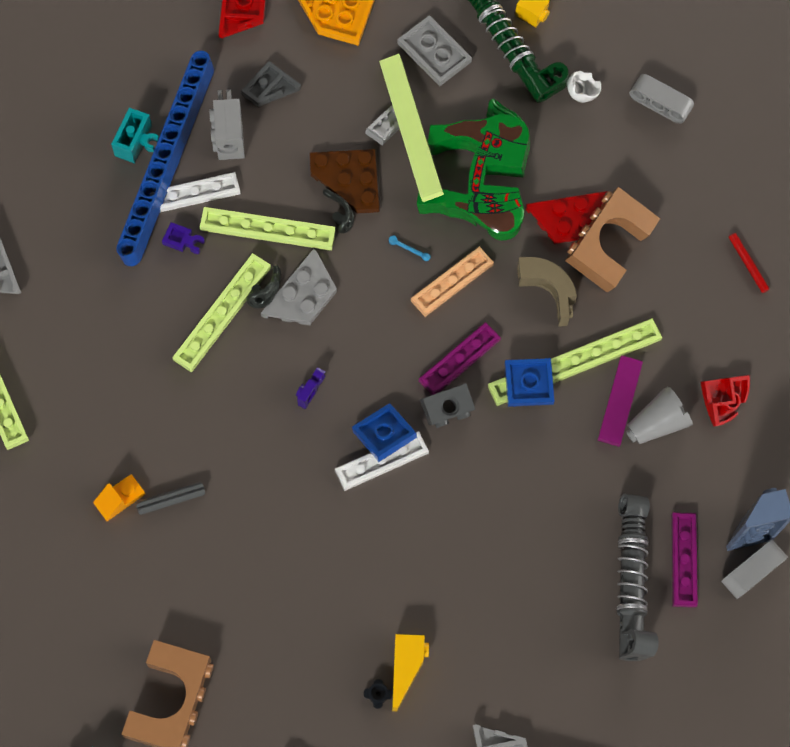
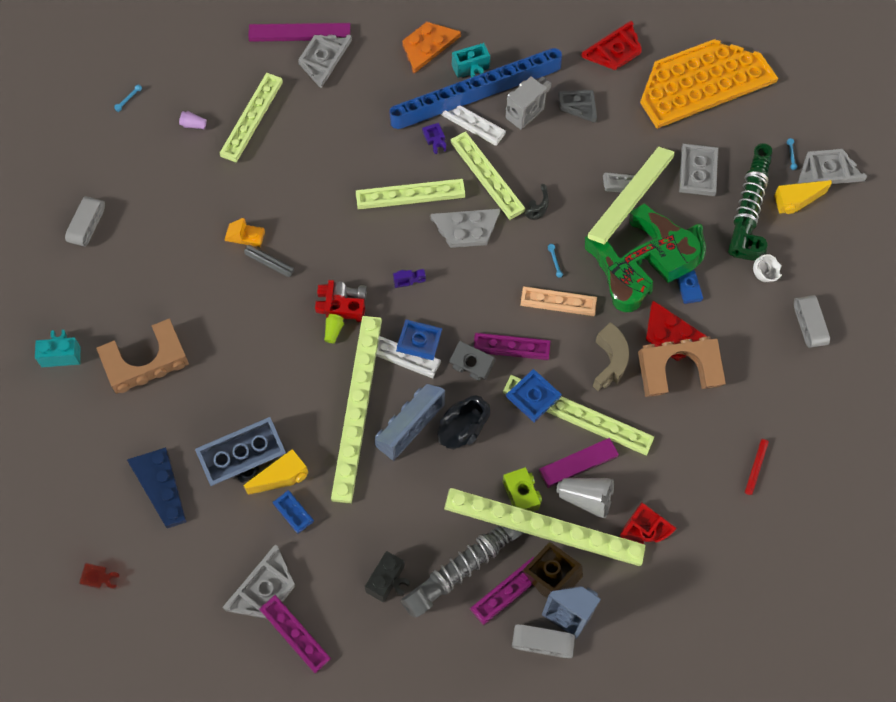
camera: 50 degrees right, 5 degrees down
(68, 156) = (427, 43): none -> orange wing
(262, 297) = (441, 206): pearl dark grey piece -> none
(277, 473) = (338, 303): none -> red hips
(299, 498) = (333, 327): none -> lime cone
(349, 175) = (567, 191): reddish brown plate -> none
(355, 683) = (240, 451): none -> sand blue slope
(401, 544) = (356, 410): none -> yellowish green plate
(453, 684) = (293, 512): none -> blue plate
(458, 507) = (410, 420): none -> sand blue slope
(501, 463) = (463, 422): none -> black hair
(542, 164) = (690, 288): none -> blue plate
(588, 652) = (386, 577): none -> pearl dark grey brick
(615, 482) = (522, 479): none -> lime brick
(658, 481) = (544, 527): none -> yellowish green plate
(704, 508) = (553, 570): none -> dark brown slope

